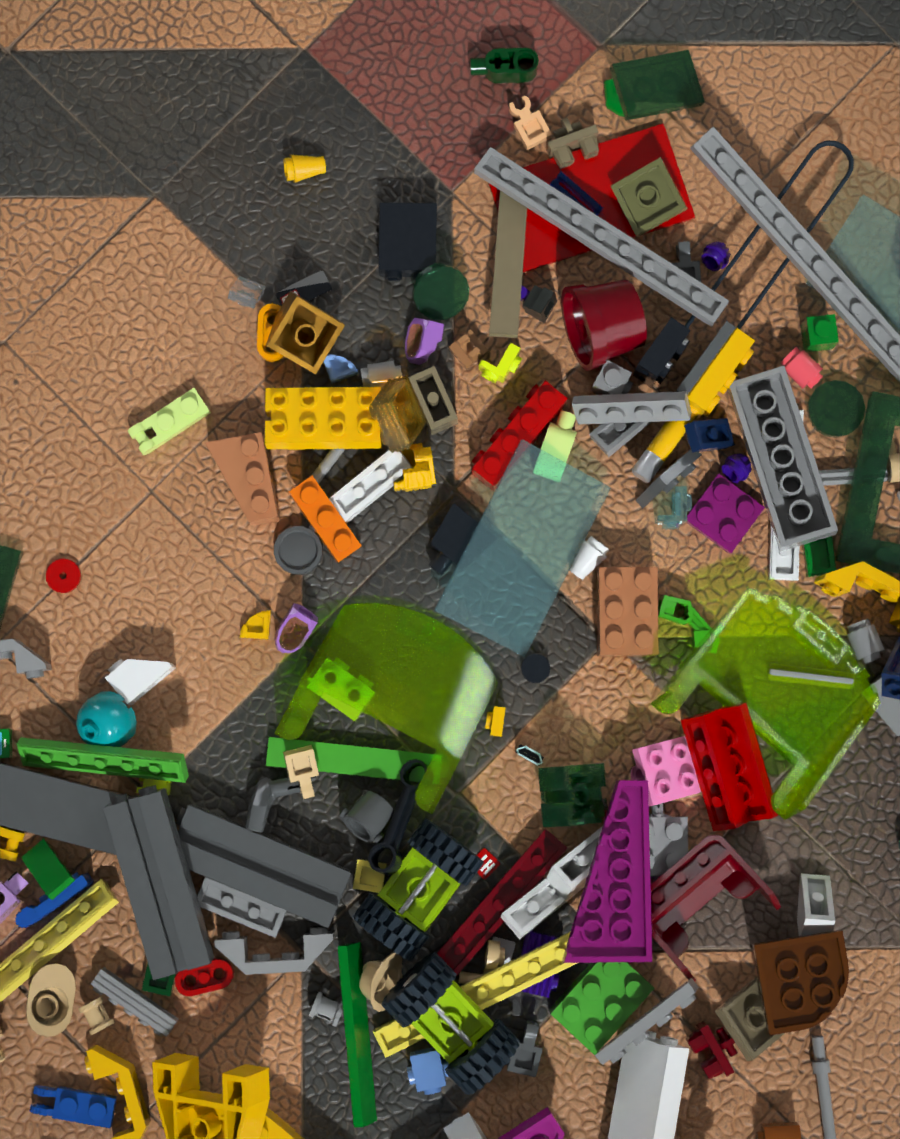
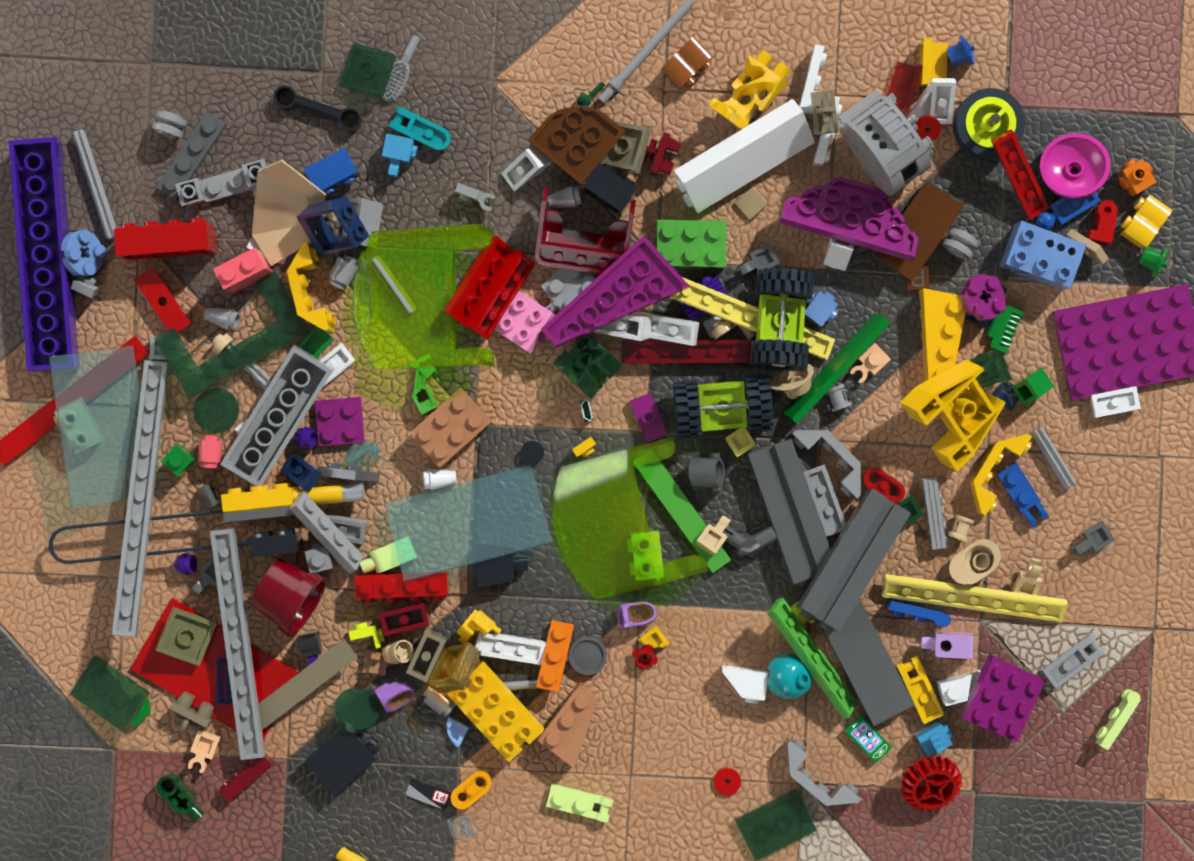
camera: 130 degrees left, 5 degrees up
(47, 869) = (903, 632): green tile -> none
(241, 599) = (641, 662): none -> red plate
(303, 332) = (454, 769): pearl gold slope -> none
(332, 1074) = (872, 360): none -> light nougat plate
(398, 821) = (694, 452): black piece -> none
(456, 382) = (397, 651): none -> tan wheel
(469, 139) = (247, 776): none -> dark red piece
(470, 807) = (648, 417): none -> magenta plate
(485, 410) = (405, 618): none -> dark red brick
(489, 865) = (671, 377): red sticker -> none
(589, 1095) = (751, 203): none -> tan slope
(657, 1015) = (690, 208): light grey plate -> none
(724, 968) = (610, 189): none -> black brick
(751, 917) = (566, 198): none -> light grey cone
(761, 330) = (207, 497): none -> dark grey slope
(831, 1023) = (585, 99): none -> dark green hand
(836, 827) = (468, 194): none -> light grey plate

